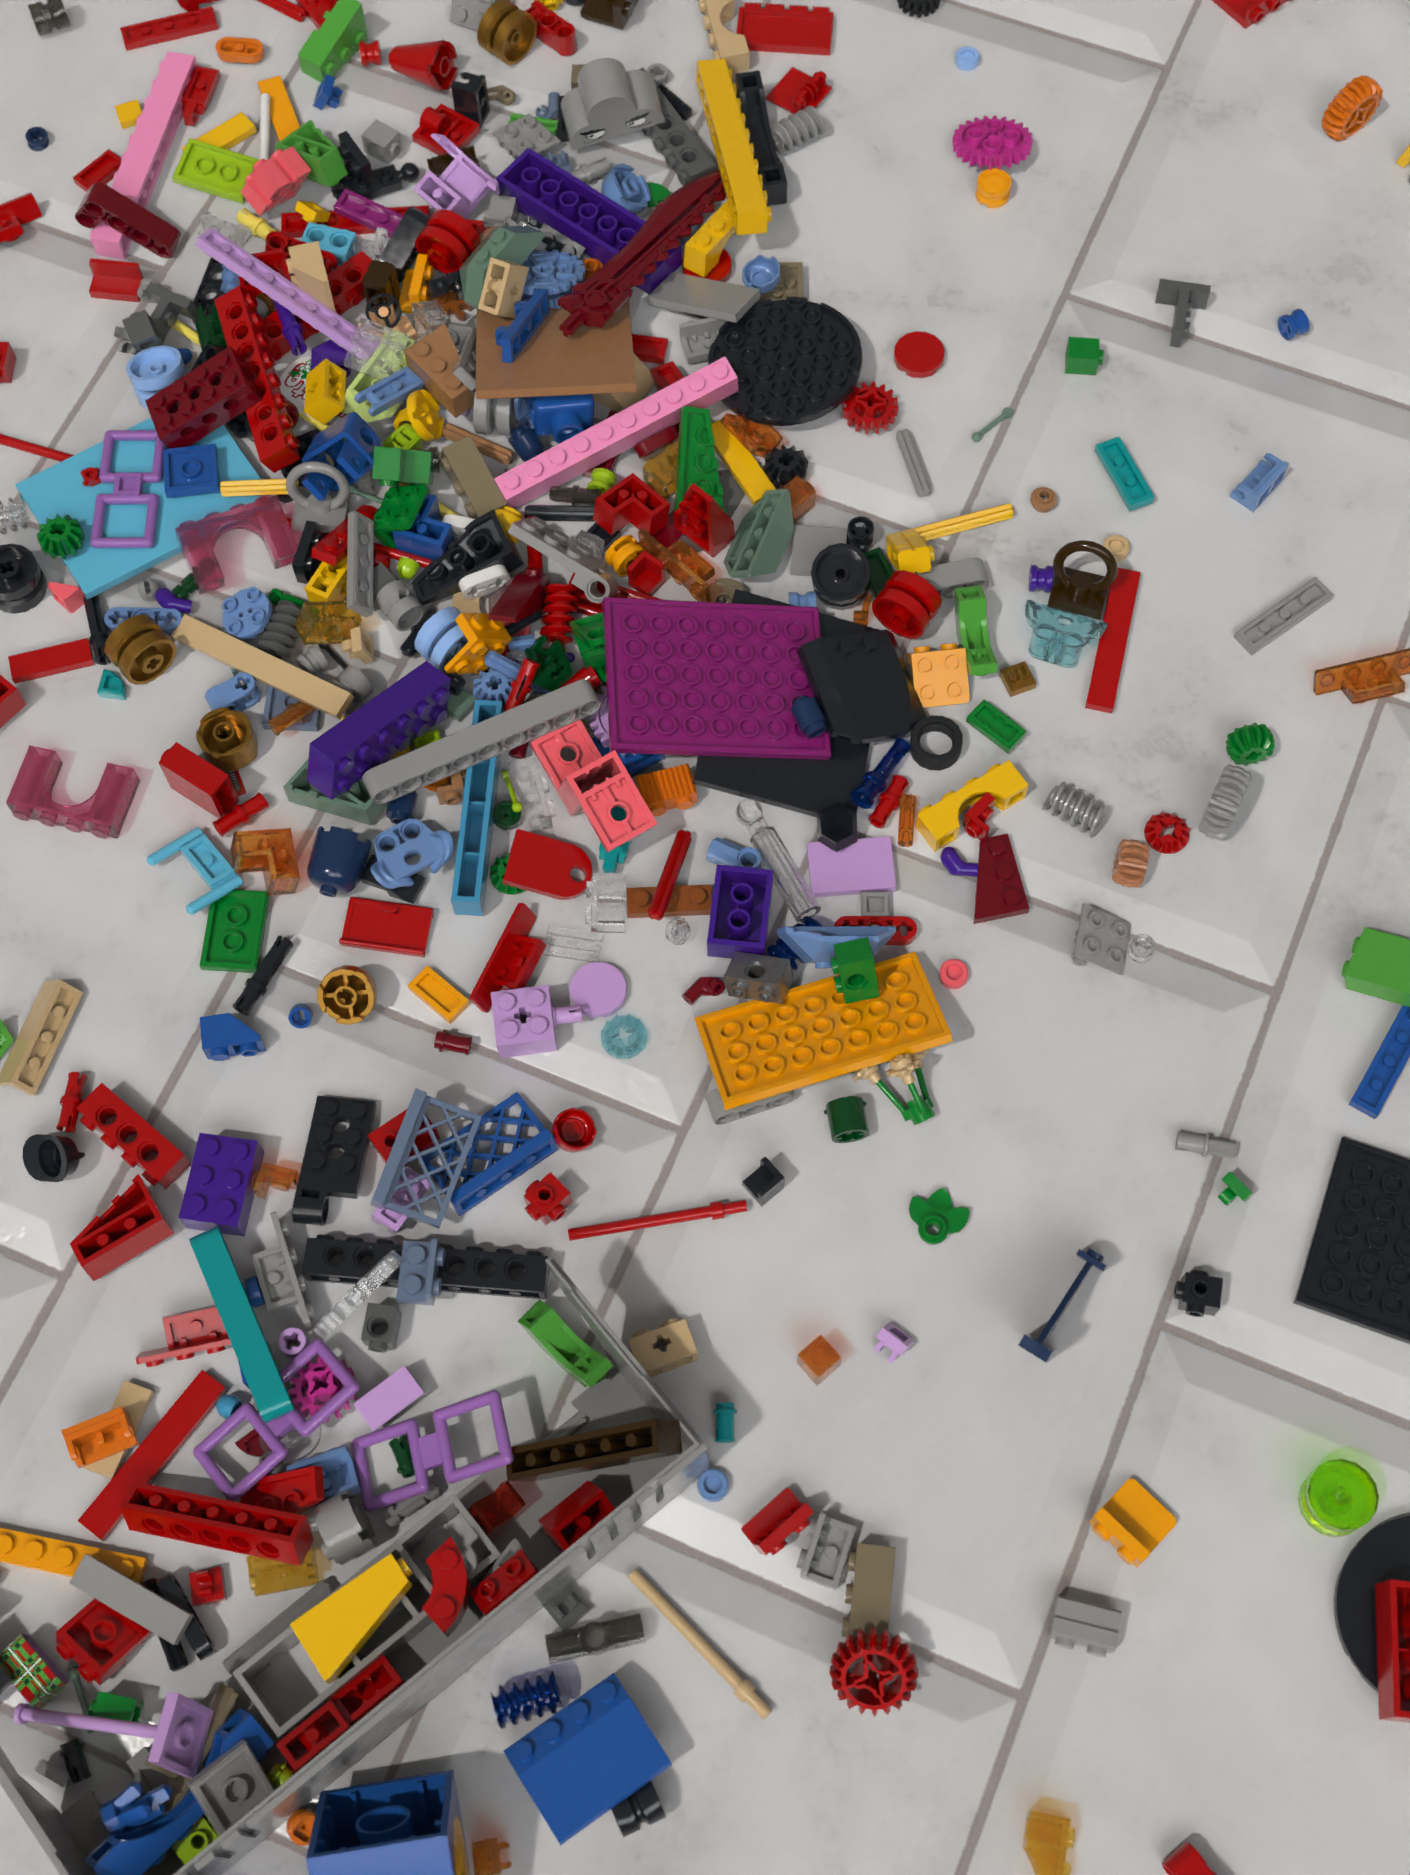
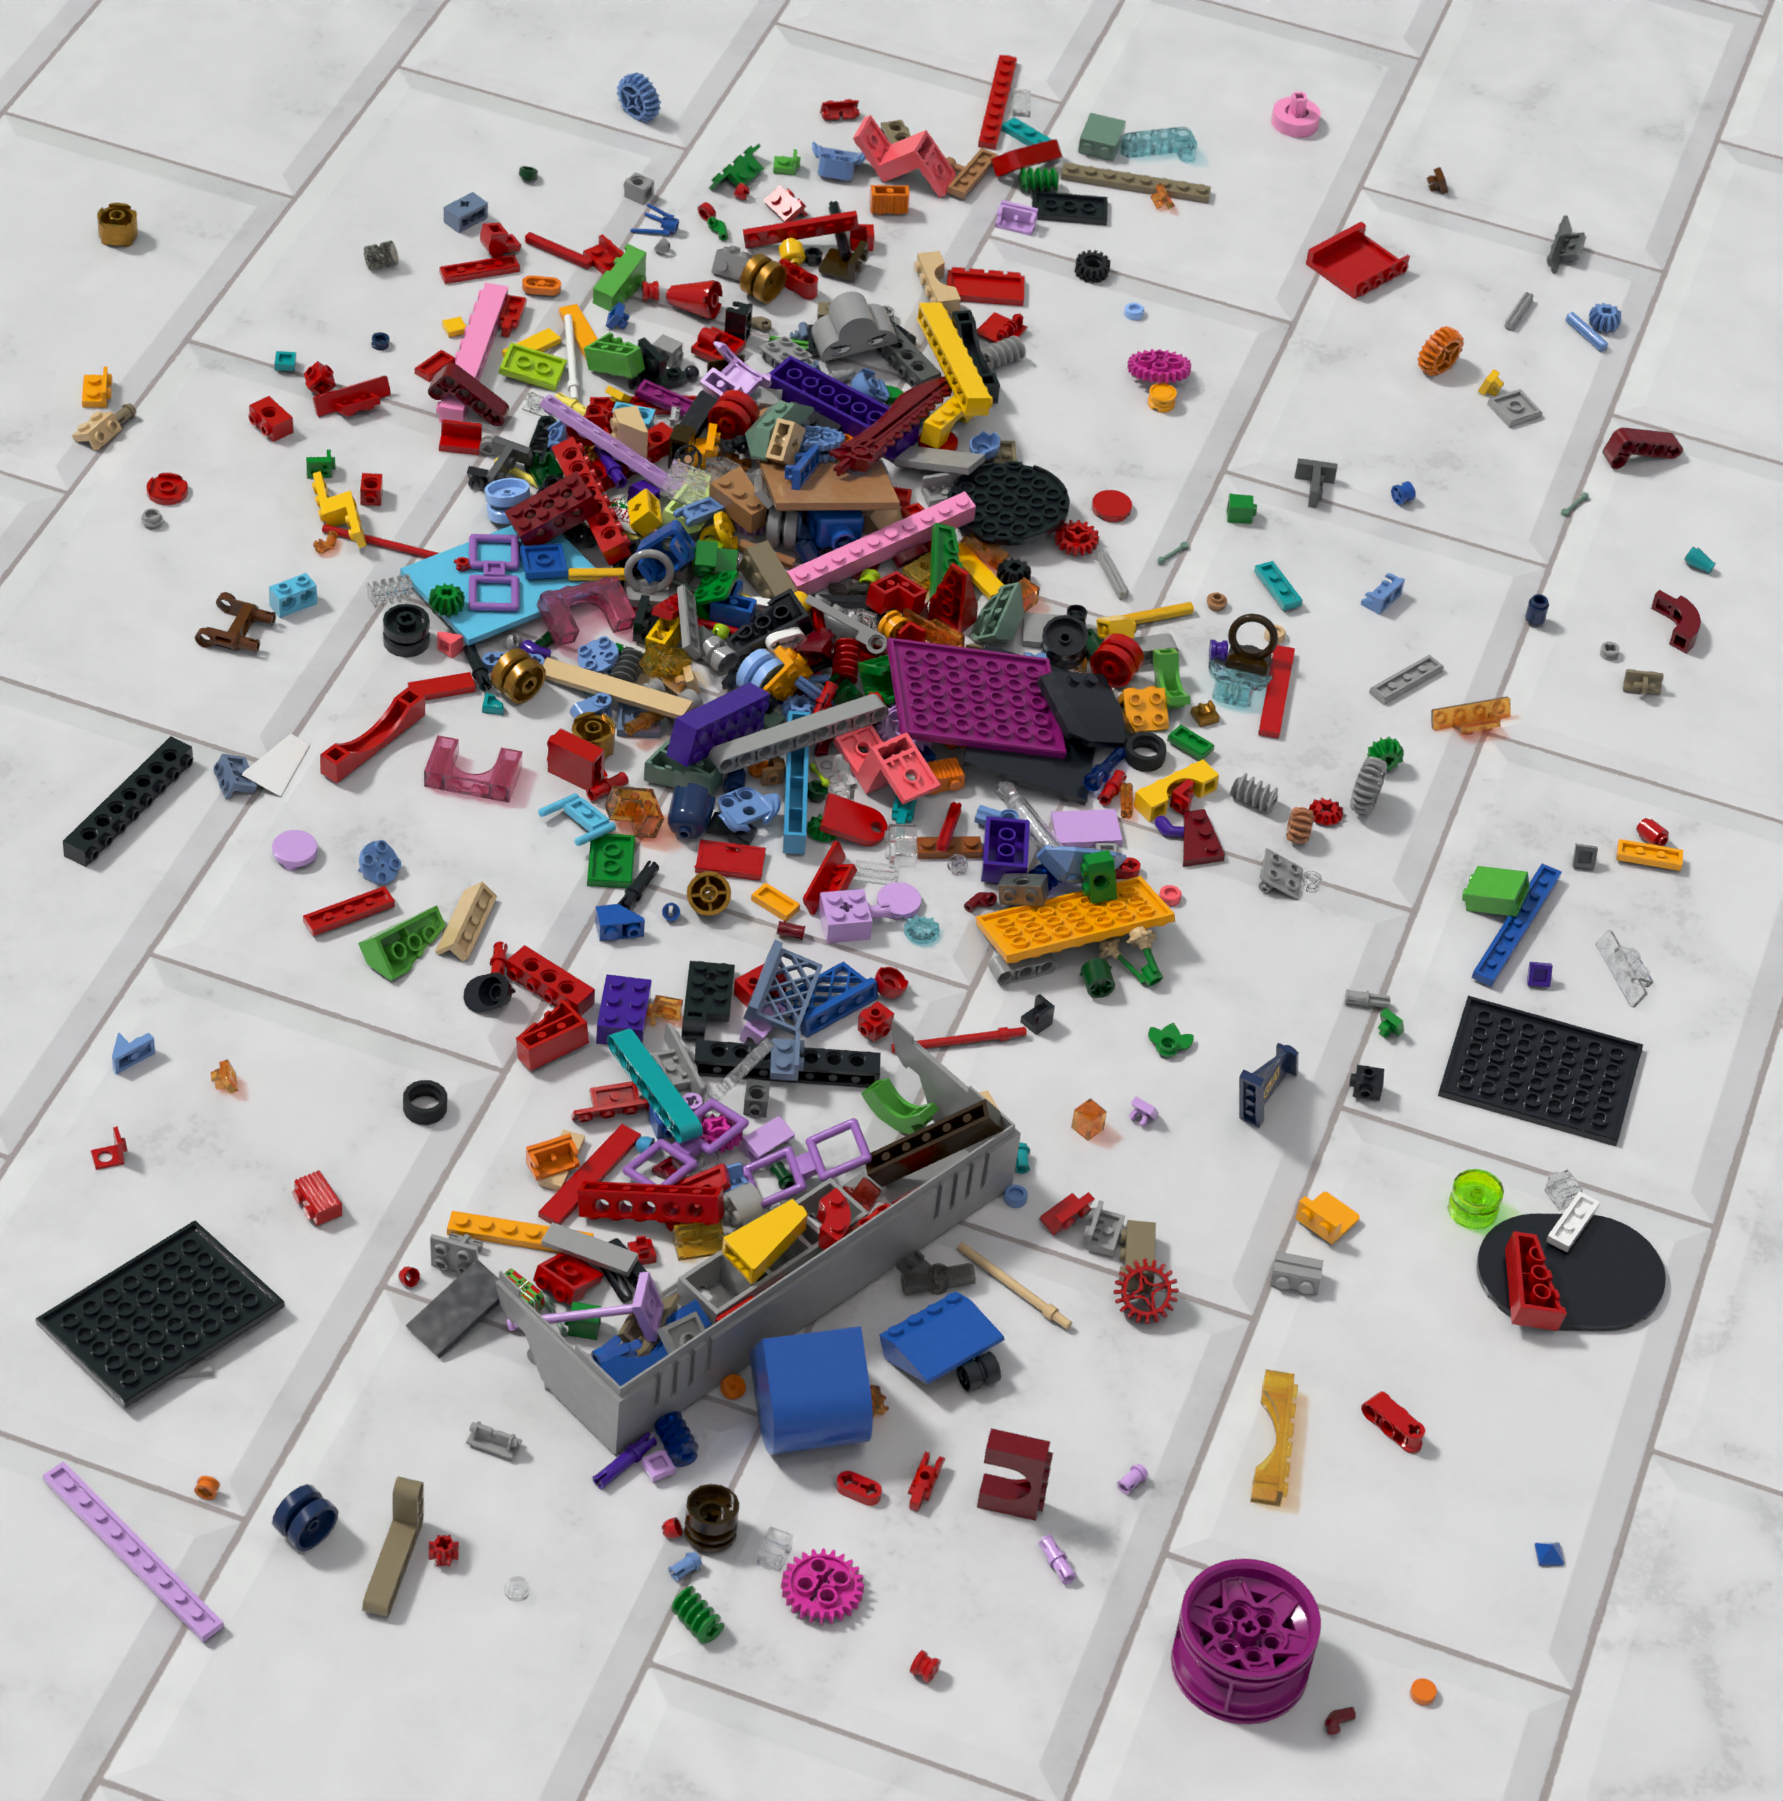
camera: 10 degrees left, 20 degrees down
(142, 331) = (494, 466): dark grey brick -> none
(275, 180) = (587, 370): coral brick -> none
(526, 1699) = (891, 1310): clear blue piece -> none
(809, 716) = (1049, 723): dark blue brick -> none
(837, 827) = (1075, 798): black panel -> none

